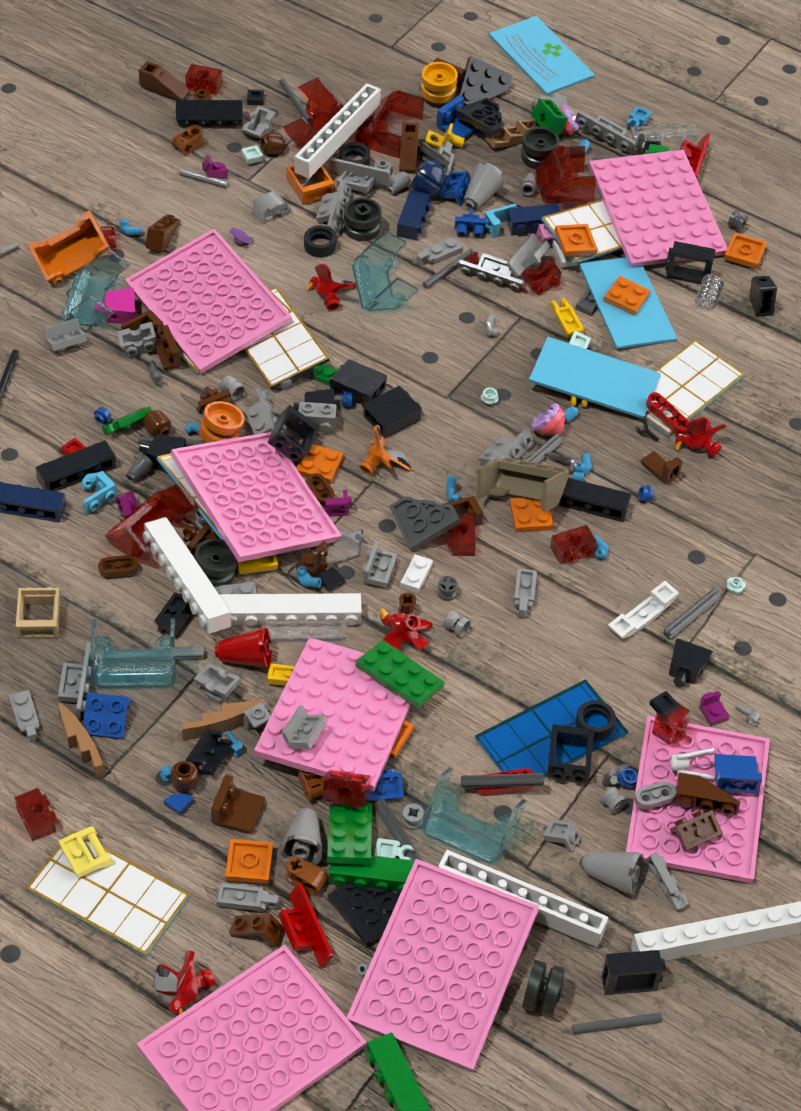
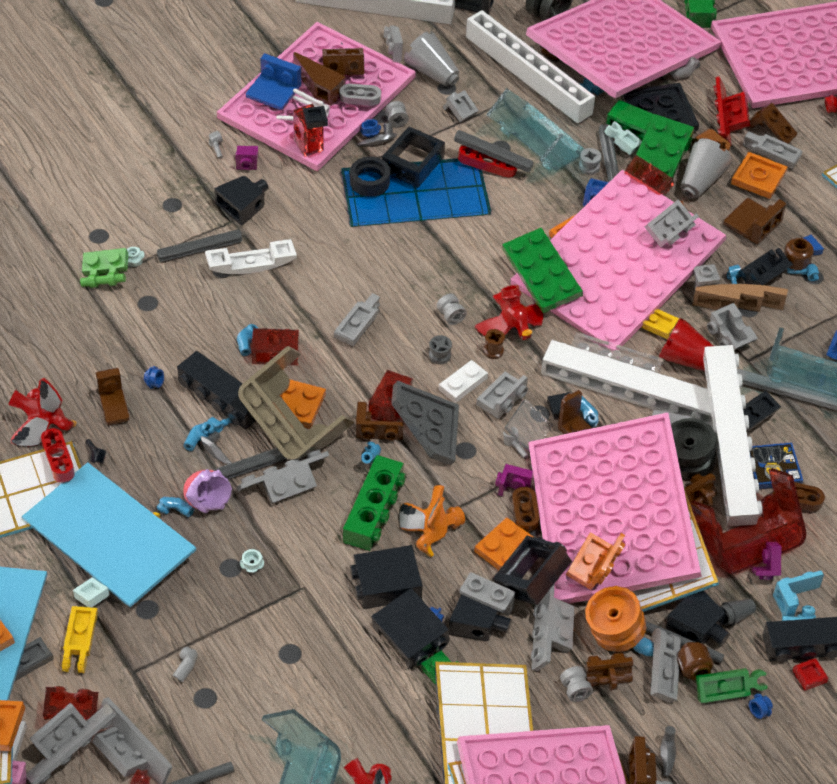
camera: 155 degrees left, 0 degrees up
(146, 587) = (775, 456): none -> tile
(177, 415) = (665, 665): none -> light grey plate
(249, 445) = (595, 560): none -> orange bracket
(430, 456) = (373, 503): none -> green brick
(749, 566) = (104, 262): none -> bright green plate

